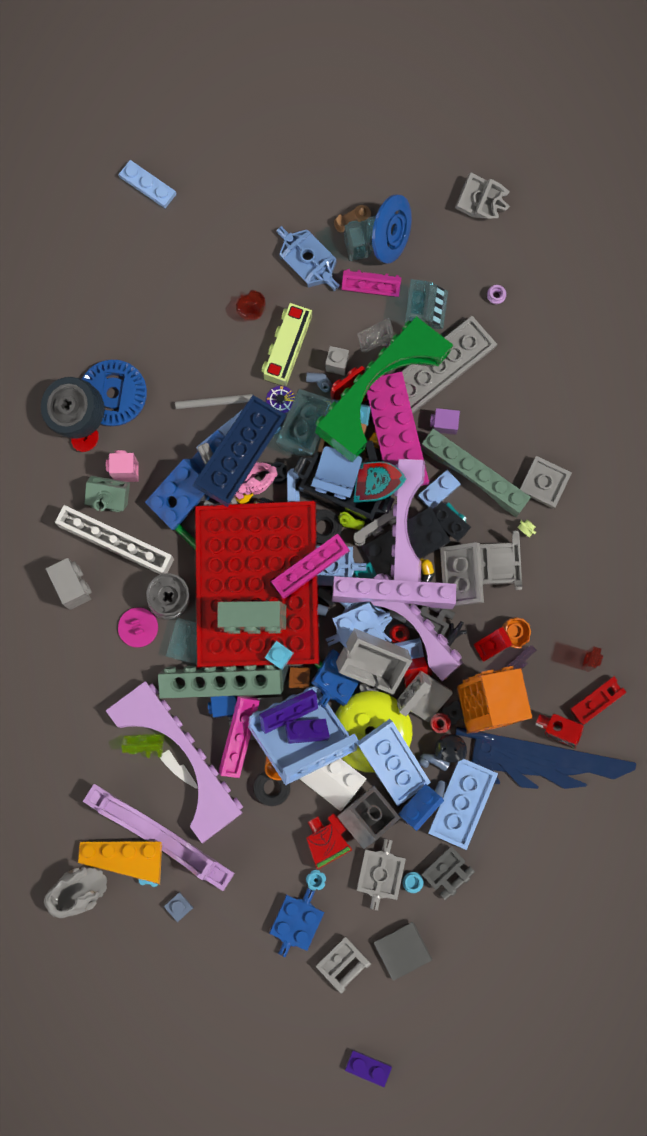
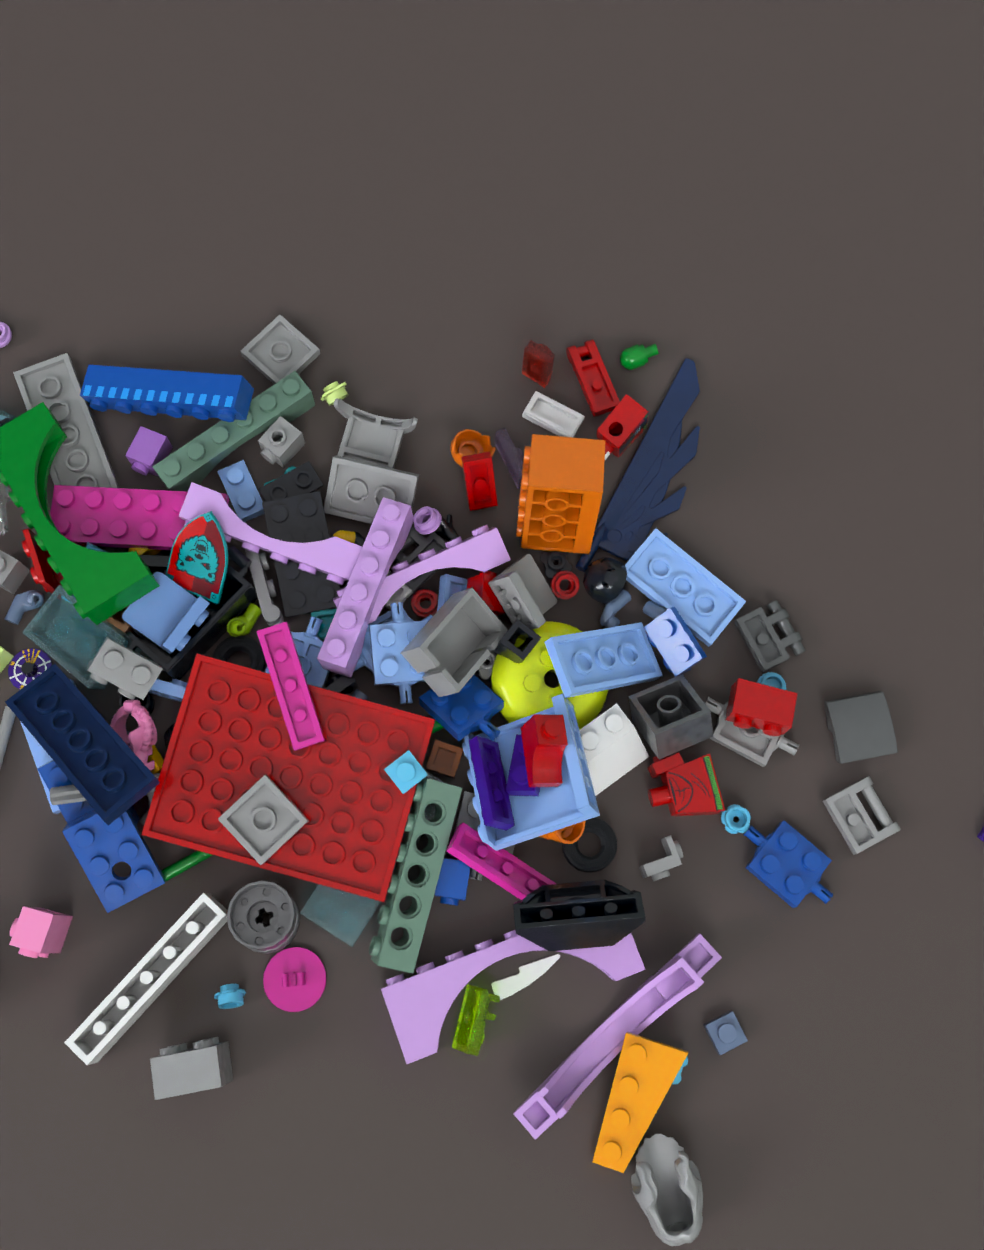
camera: 80 degrees left, 5 degrees down
(106, 493) = (73, 969): sand green brick -> none
(117, 591) = (230, 996): none -> medium azure plate
(222, 789) = (578, 915): none -> black wedge
(224, 576) = (263, 819): none -> light grey plate
(252, 617) = (337, 793): sand green brick -> none
(269, 837) = (660, 868): none -> light grey bracket
(292, 460) = (124, 669): none -> light grey bracket
(317, 738) = (543, 748): none -> red arch
(381, 706) = (506, 644): none -> black brick
(393, 876) = (761, 707): none -> red brick
(453, 617) = (427, 520): none -> lavender plate
(479, 504) = (281, 442): none -> light grey brick
(487, 419) = (167, 392): none -> blue brick
(560, 681) = (553, 416): none -> white tile
(625, 727) = (637, 356): none -> green cylinder

